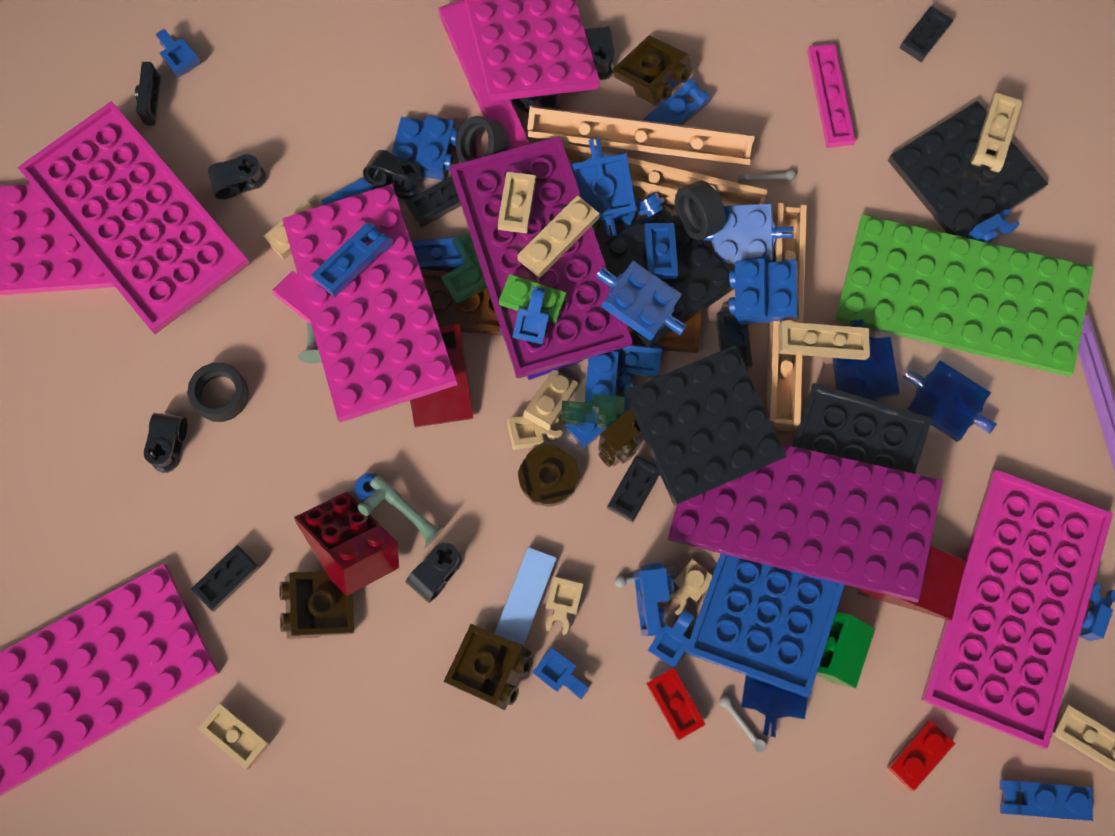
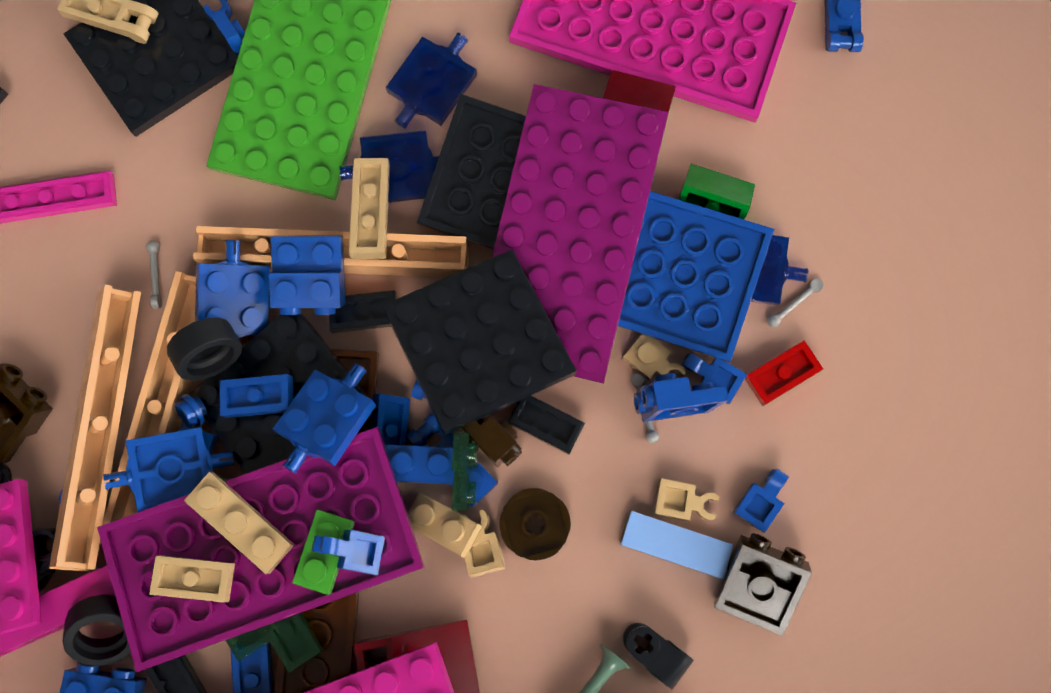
camera: 90 degrees left, 5 degrees up
(677, 109) = (59, 381): blue plate -> none
(920, 755) = (811, 124): red plate -> none

